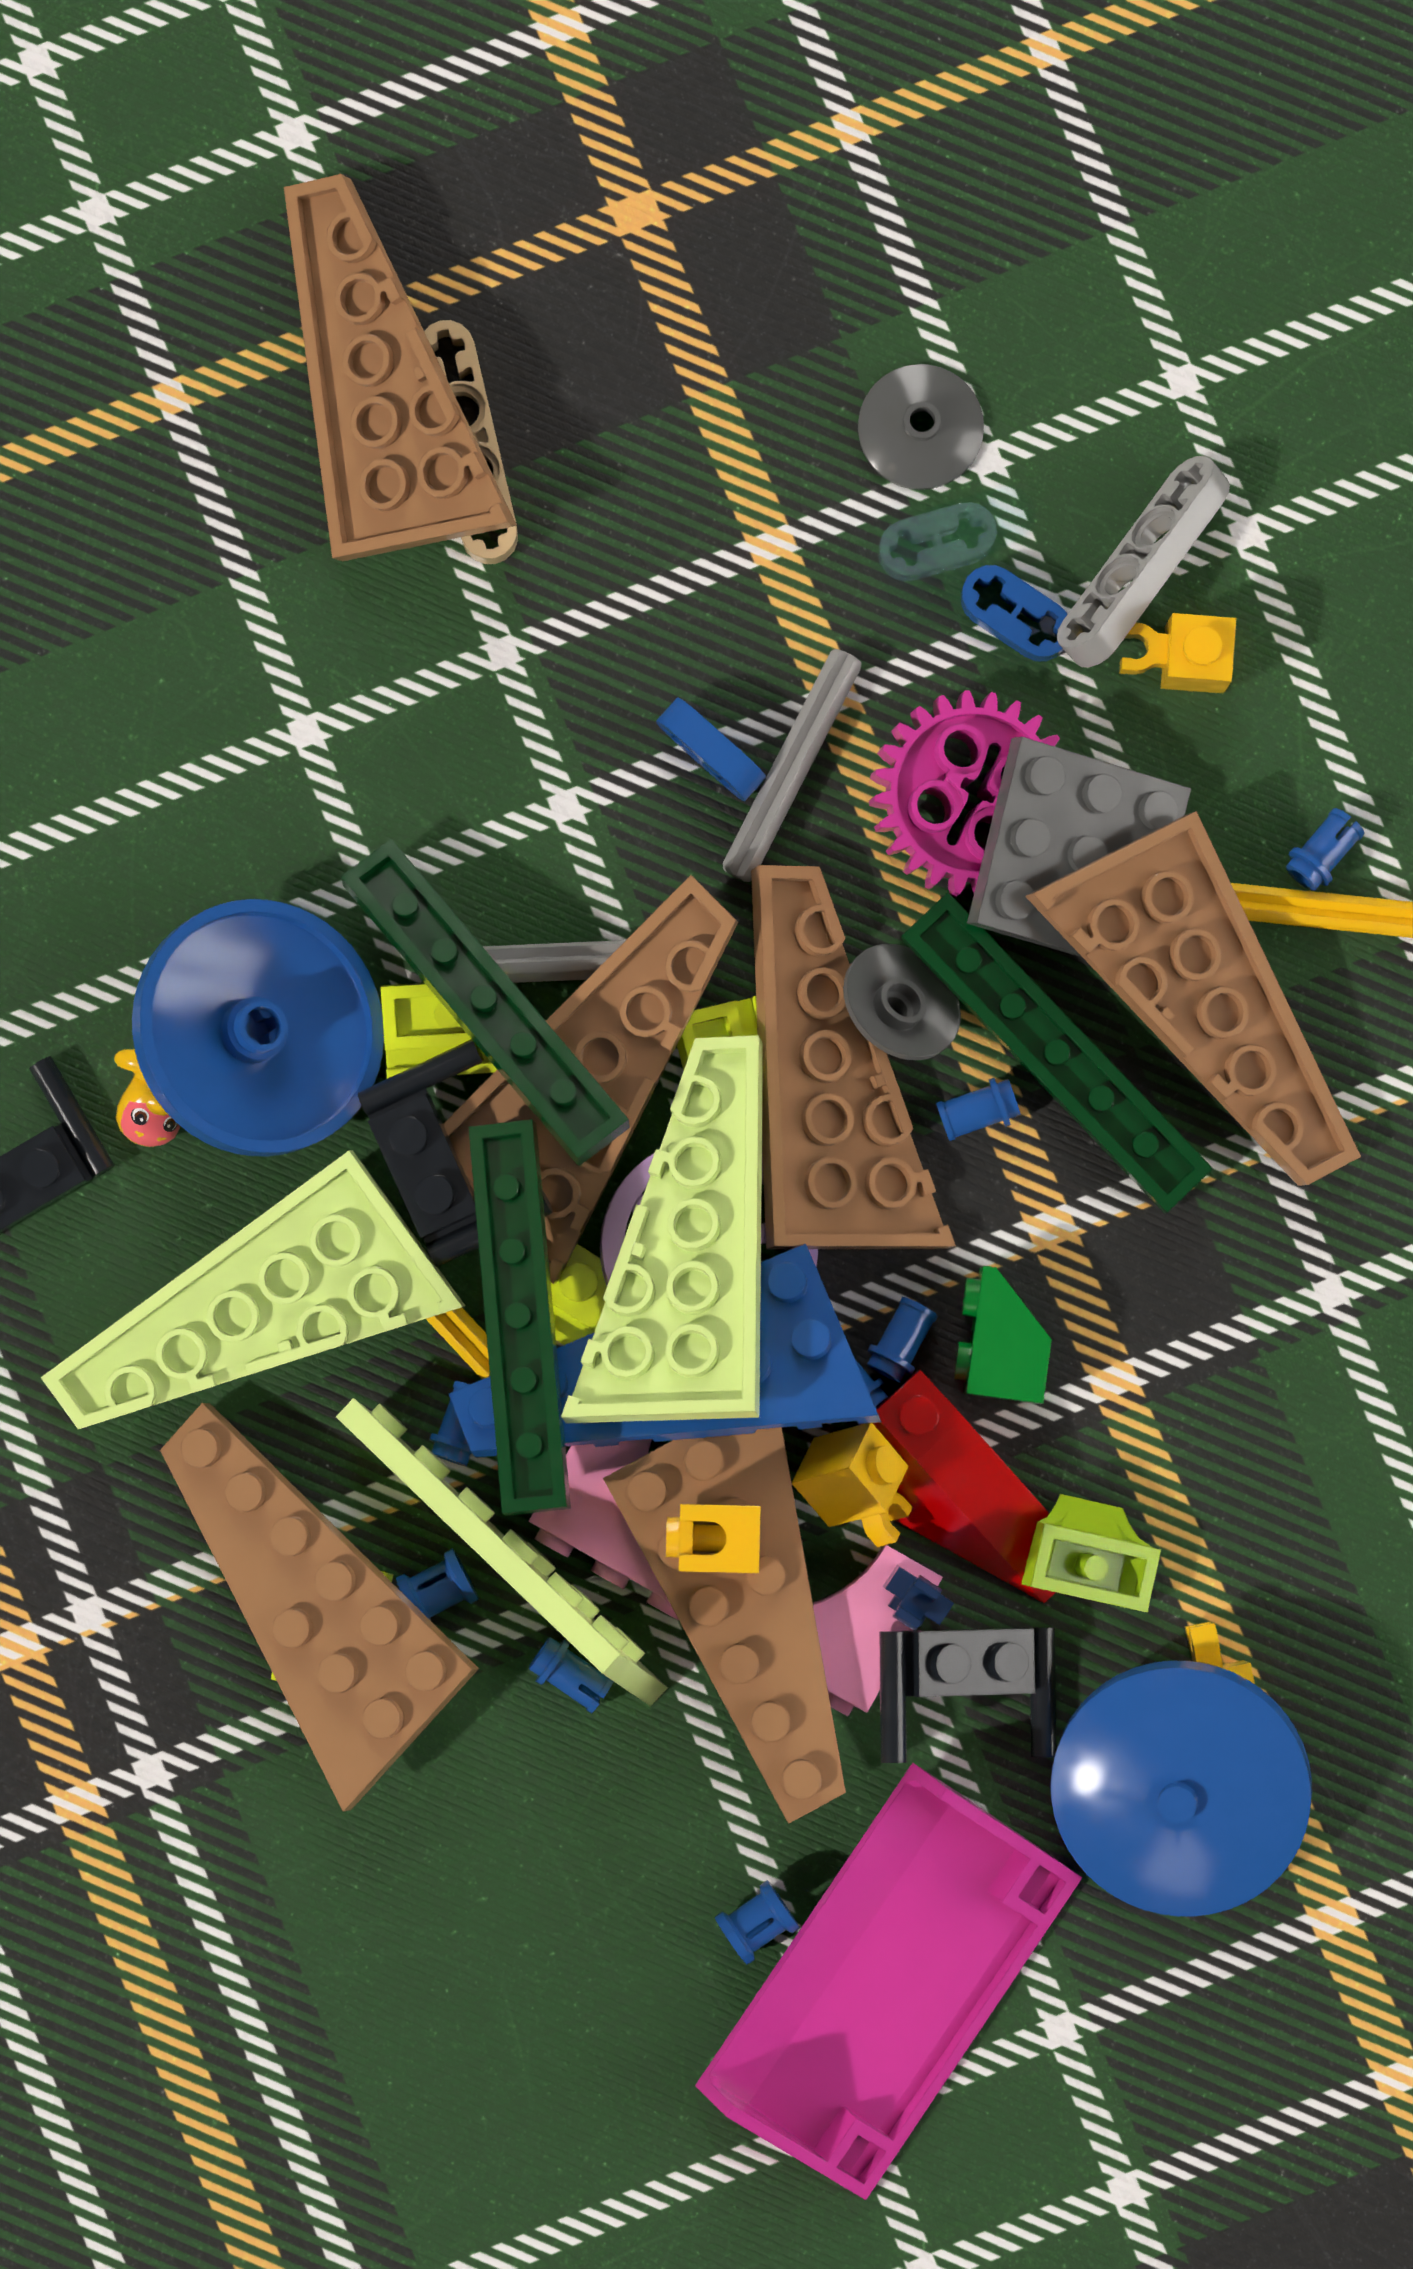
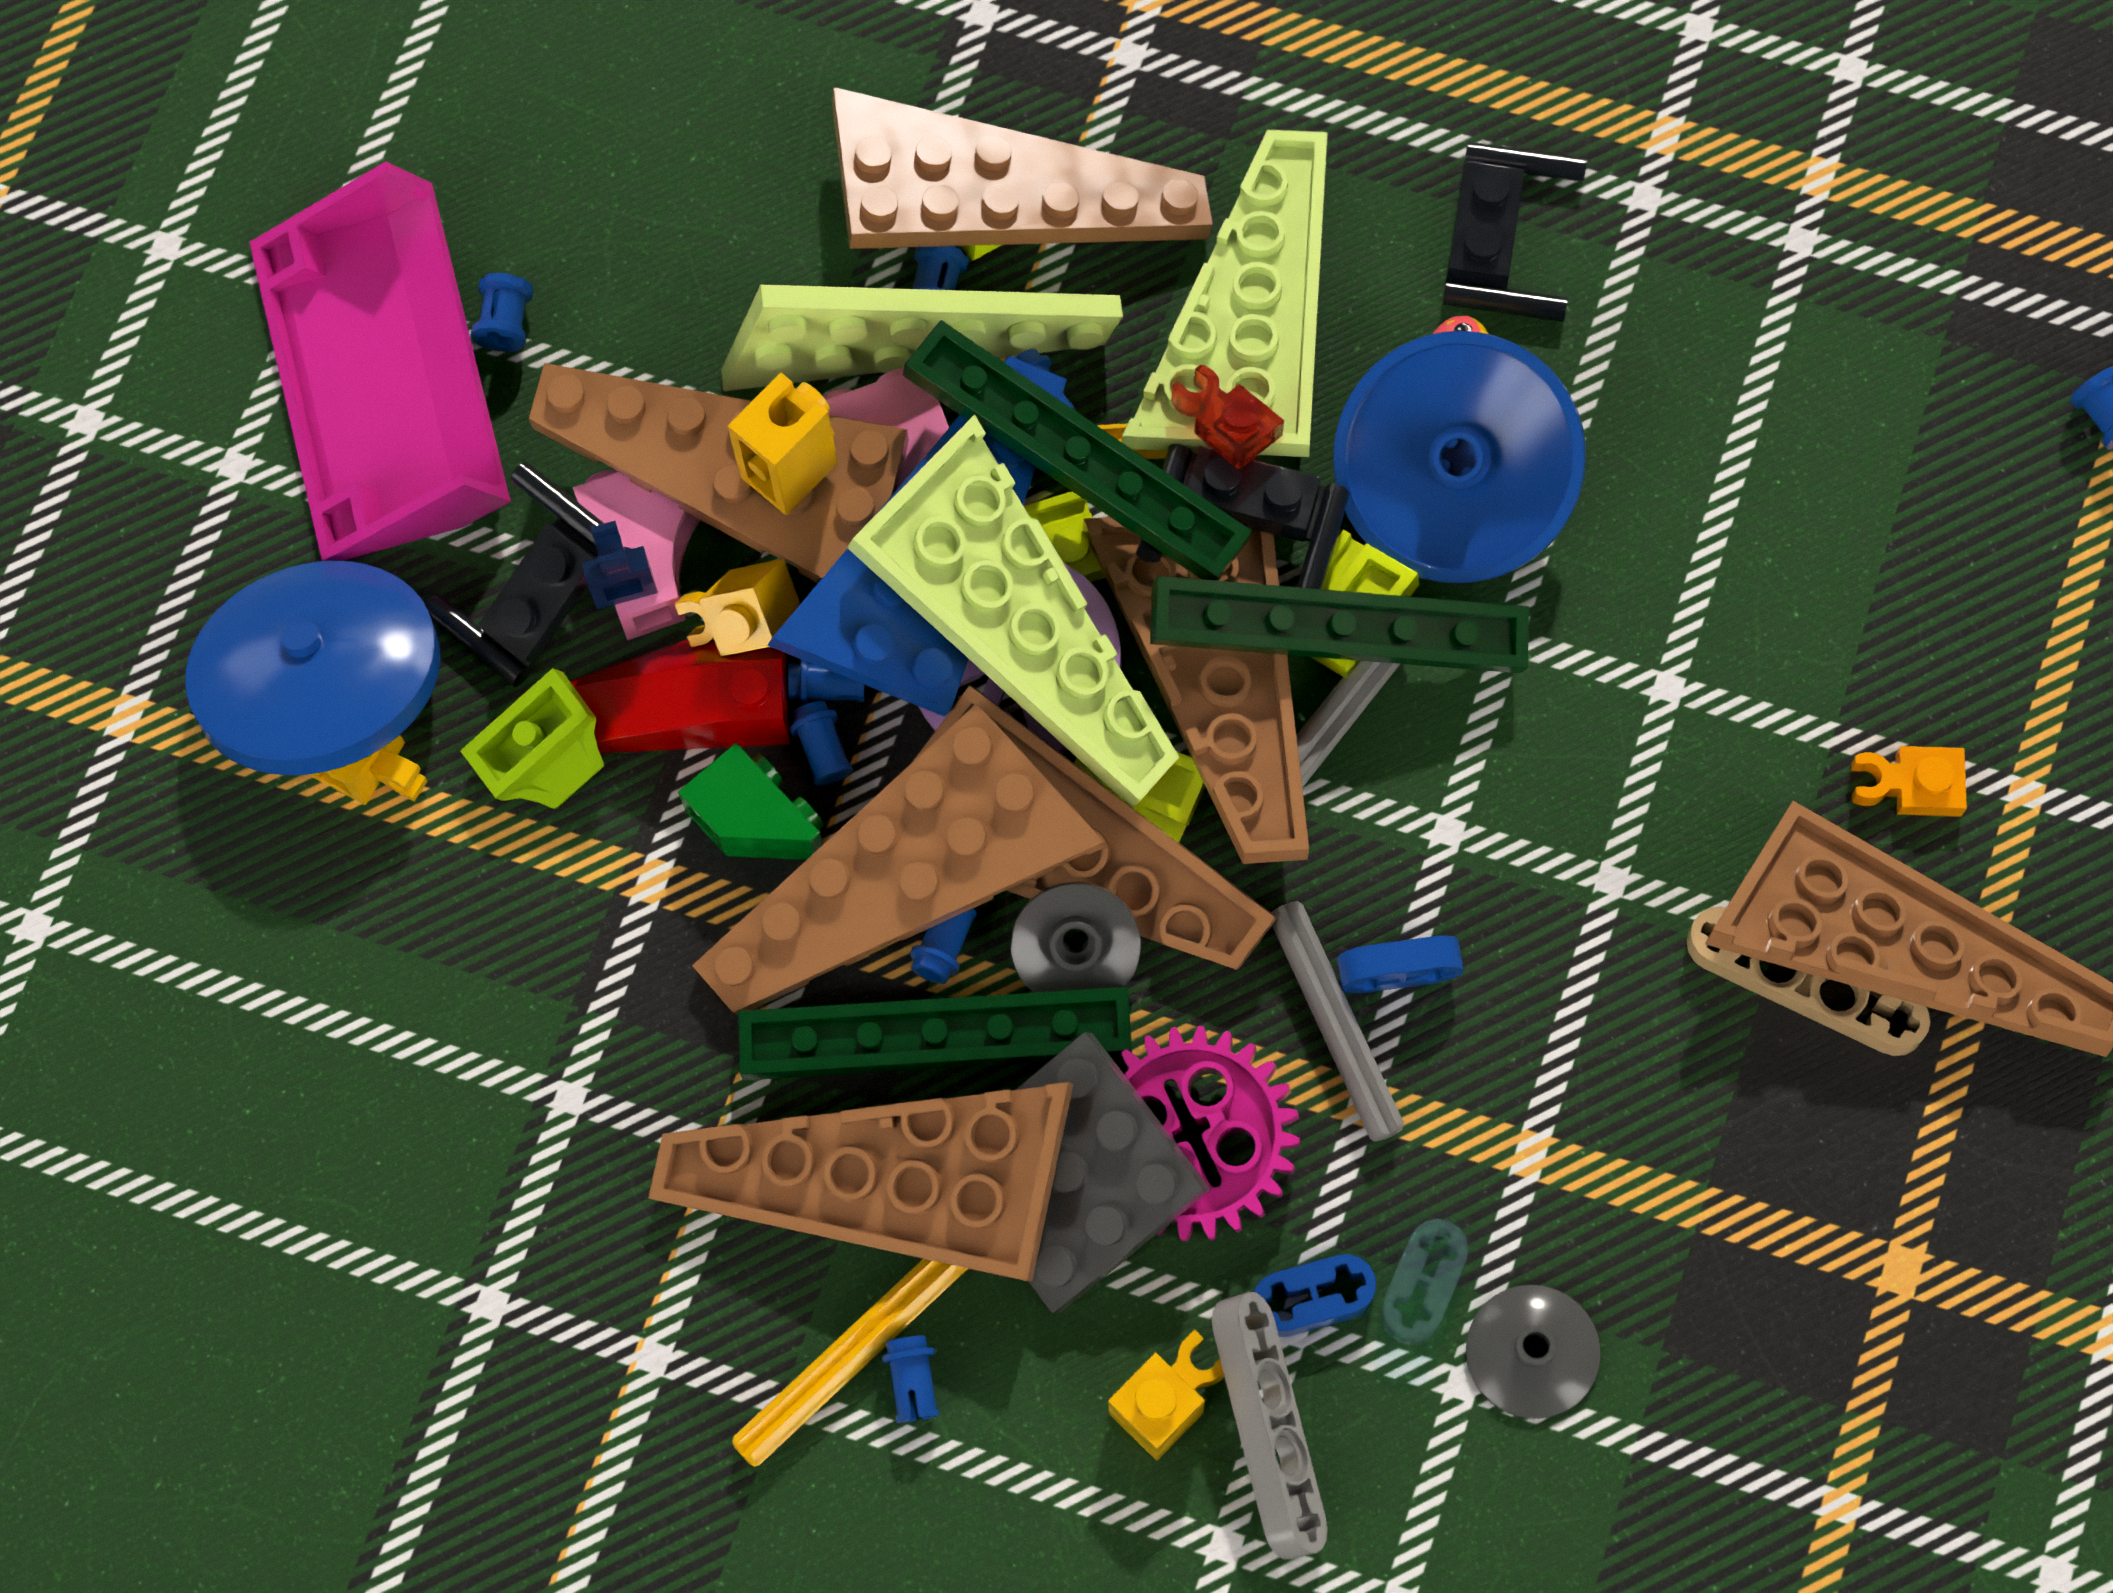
camera: 135 degrees right, 15 degrees down
(229, 479) = (1922, 779): none -> light orange plate
(382, 1220) = (1229, 422): none -> clear red plate
(922, 1171) = (923, 850): none -> medium nougat wing

